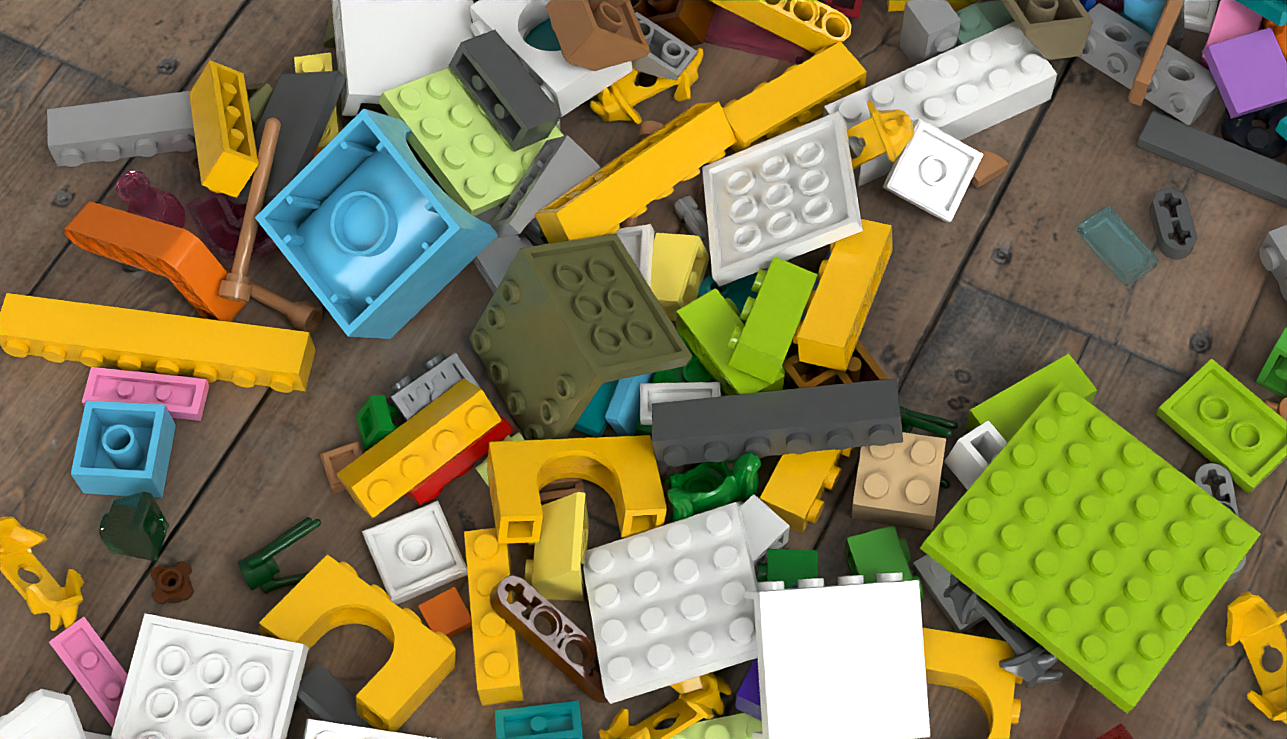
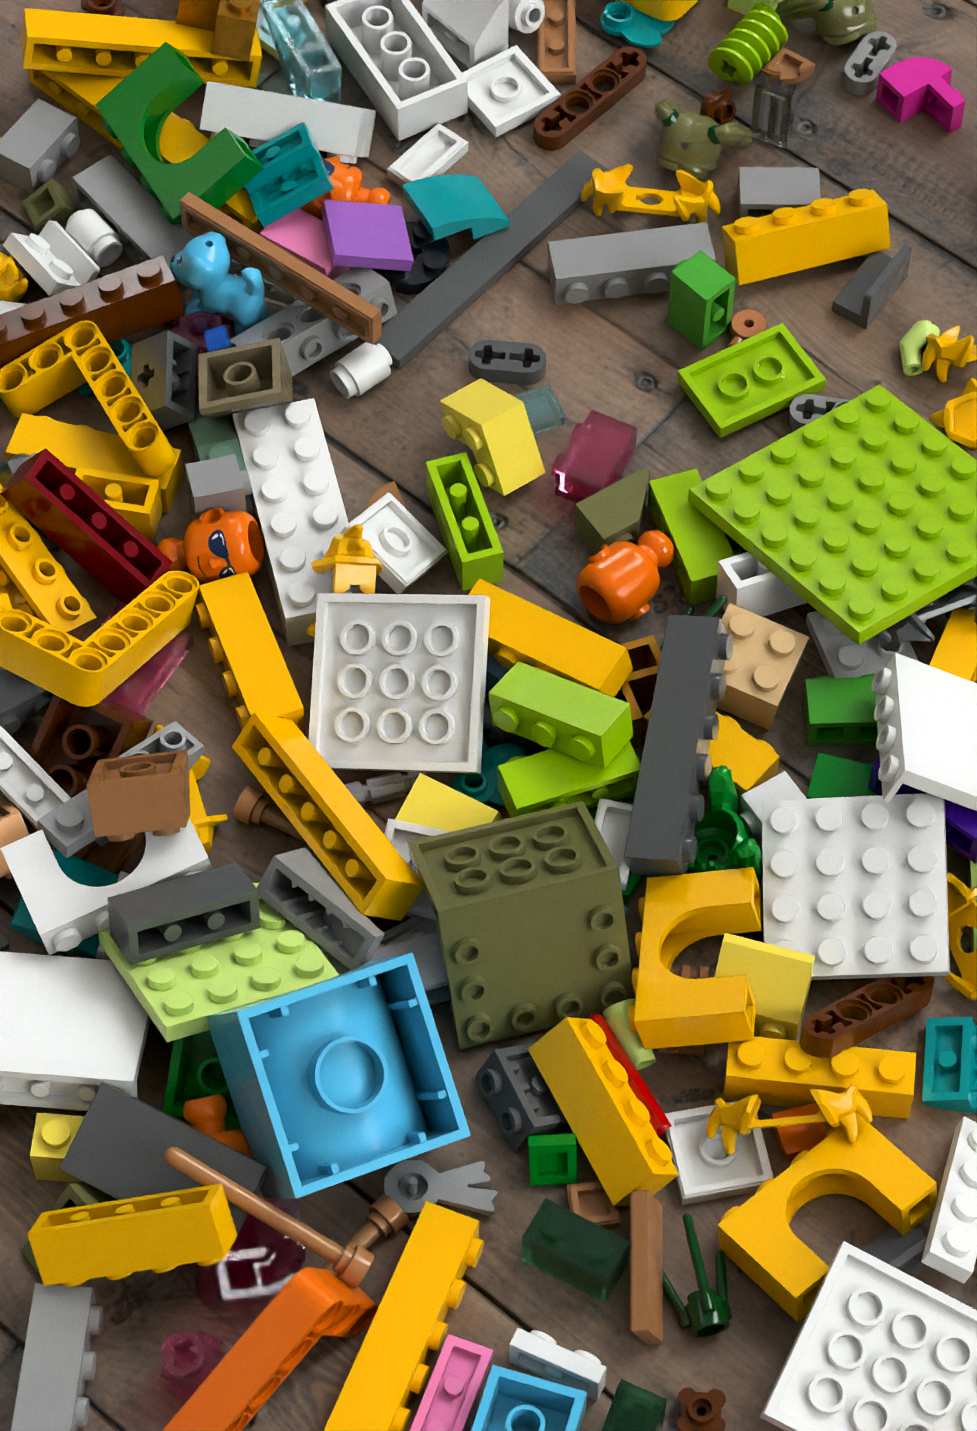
camera: 80 degrees left, 5 degrees down
(191, 474) = (543, 1357): none -> white plate
(286, 511) = (646, 1267): none -> medium nougat tile
(293, 455) = (575, 1250): none -> clear green brick
(340, 355) = (415, 1182): none -> light grey piece
(430, 562) = (834, 1108): none -> yellow piece
(884, 44) = (217, 546): none -> orange piece
(958, 356) = (624, 577): none -> orange piece
(976, 219) = (464, 520): none -> lime brick
(1030, 340) = (614, 512): none -> olive slope
(1071, 218) = (496, 432): none -> light yellow brick
(1085, 312) = (595, 458): none -> clear pink brick
(1115, 113) = (361, 369): none -> white brick

